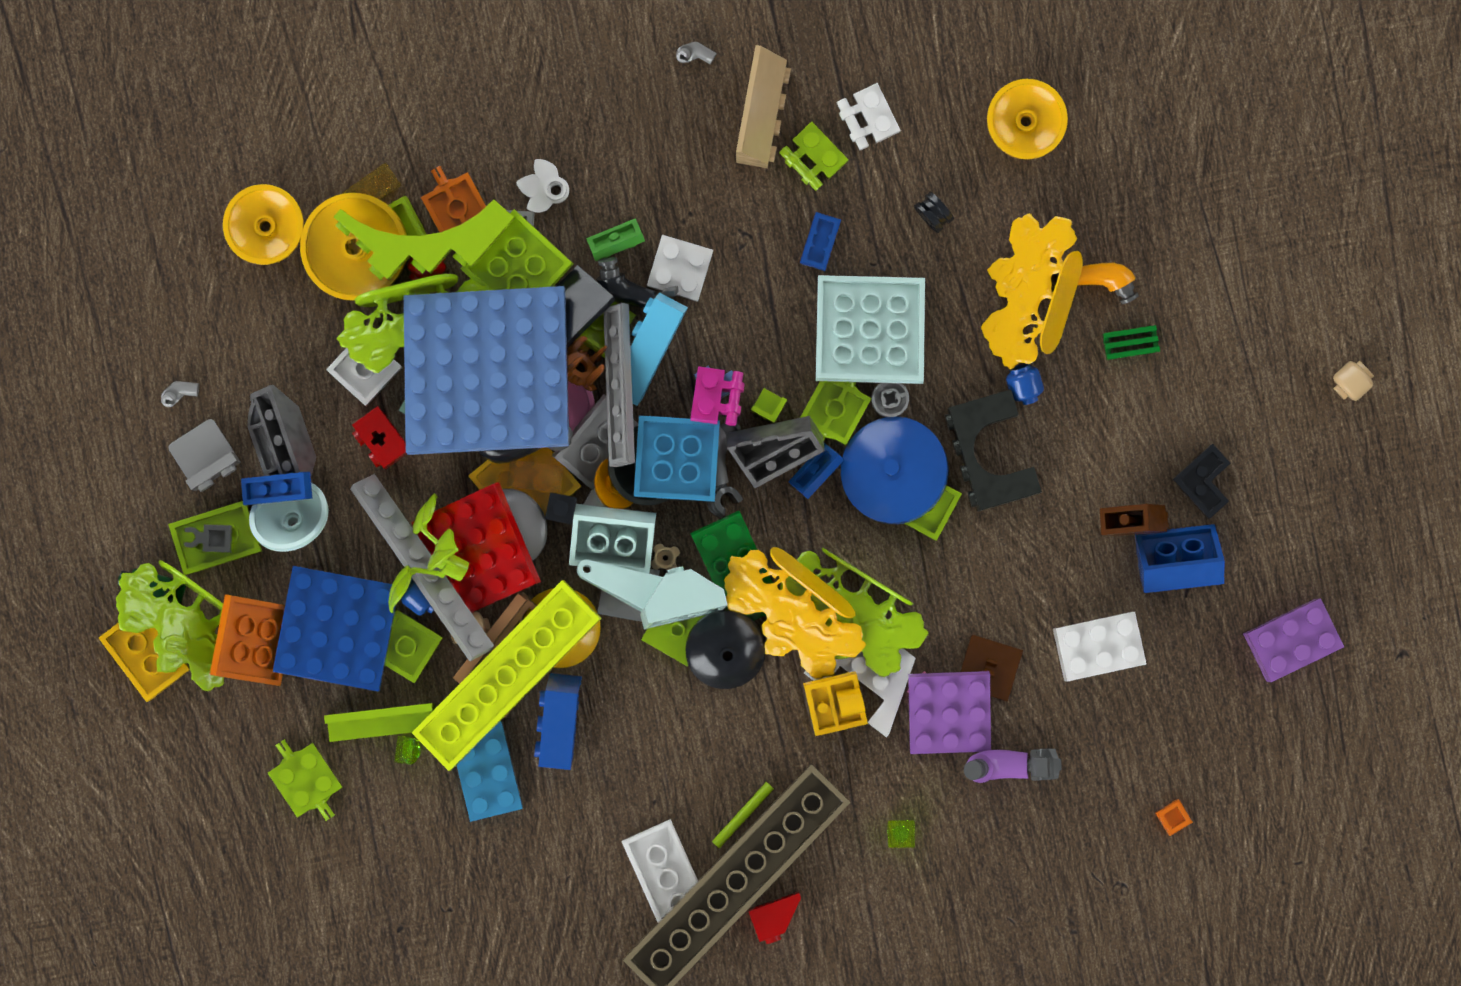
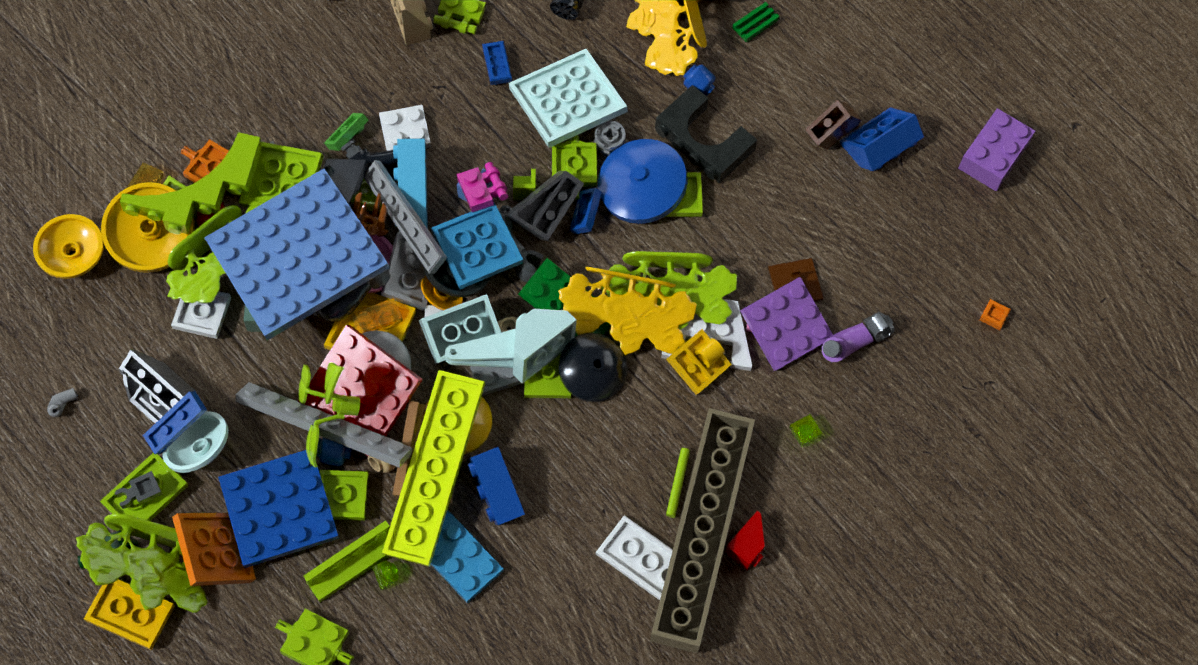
camera: 35 degrees left, 20 degrees down
(204, 455) = (104, 436): light grey bracket -> none
(374, 423) = (234, 343): red brick -> none
(539, 186) = (270, 124): white plate -> none
(561, 508) = (409, 325): black brick -> none
(1099, 646) = (864, 223): white brick -> none
(1197, 478) = (861, 86): black plate -> none

